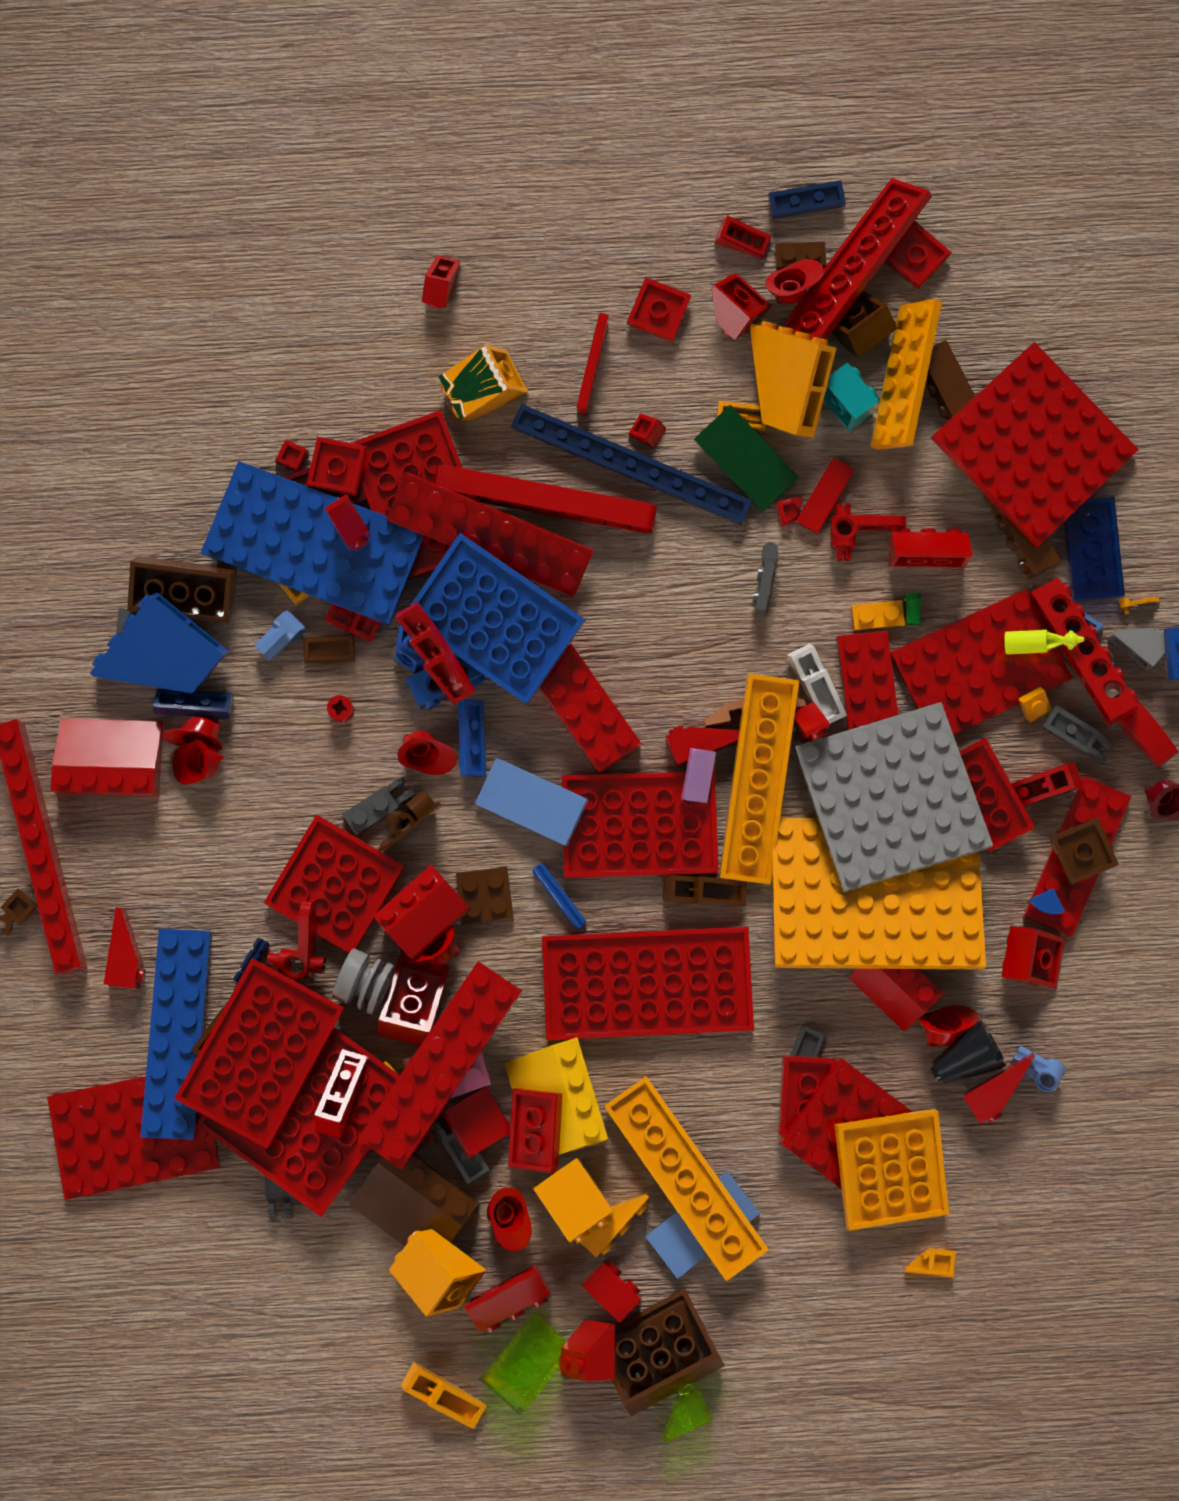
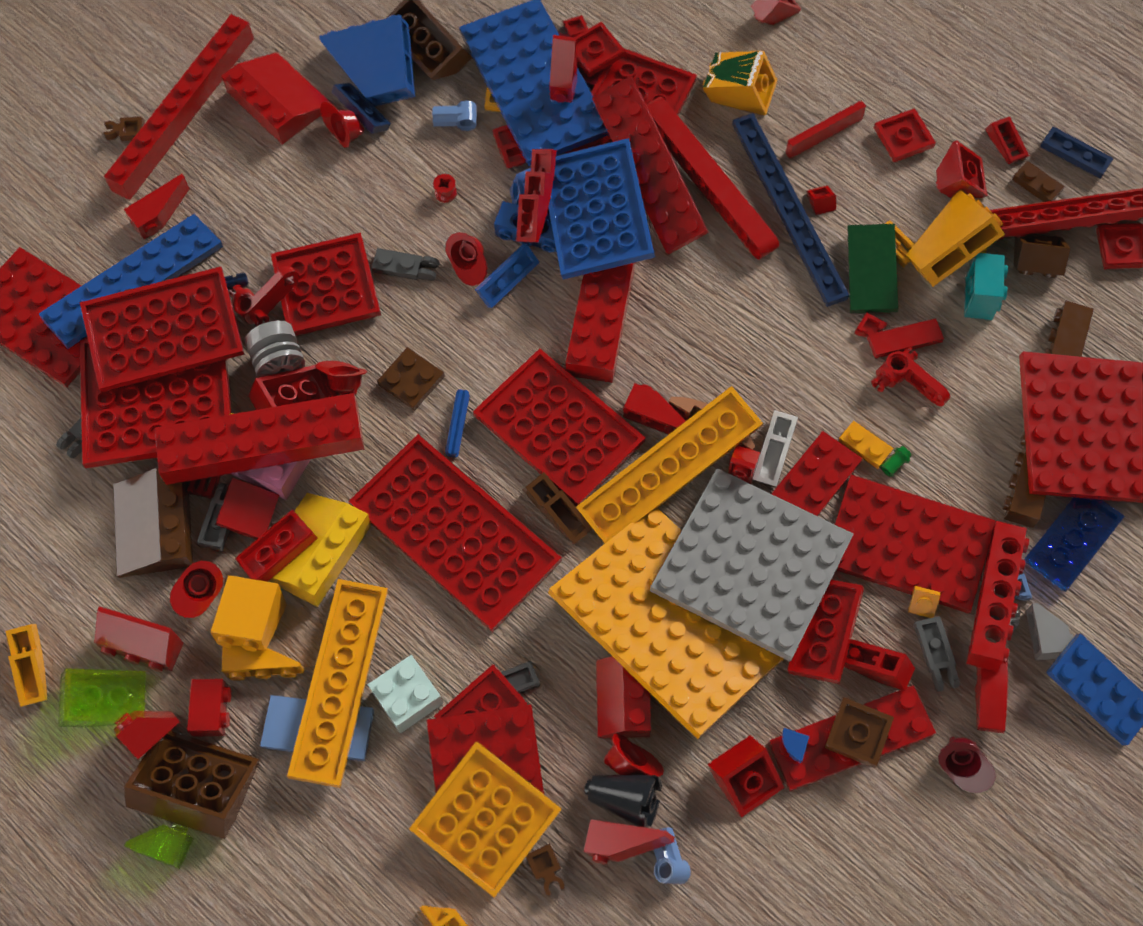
camera: 45 degrees right, 15 degrees down
(195, 762) = (325, 140): red piece -> none
(329, 649) = (477, 151): reddish brown tile -> none
(340, 1094) = (176, 399): red slope -> none
(418, 809) = (428, 285): reddish brown panel -> none
(421, 912) = (358, 344): red slope -> none
(435, 1272) = (111, 574): light orange slope -> none
(531, 801) = (503, 347): medium blue tile -> none
(698, 775) = (630, 425): lavender slope -> none
(742, 1139) = (405, 693): none -> light aqua brick
(766, 578) = (808, 352): dark grey hinge -> none
(792, 282) = (1016, 191): red piece -> none
(906, 374) = (1041, 307): light orange plate -> none
(929, 548) = (945, 431): red slope -> none
(960, 1158) = (545, 865): none -> reddish brown plate
(1038, 641) = (967, 554): neon yellow wheel -> none
(1125, 603) = (1063, 598): light orange piece -> none

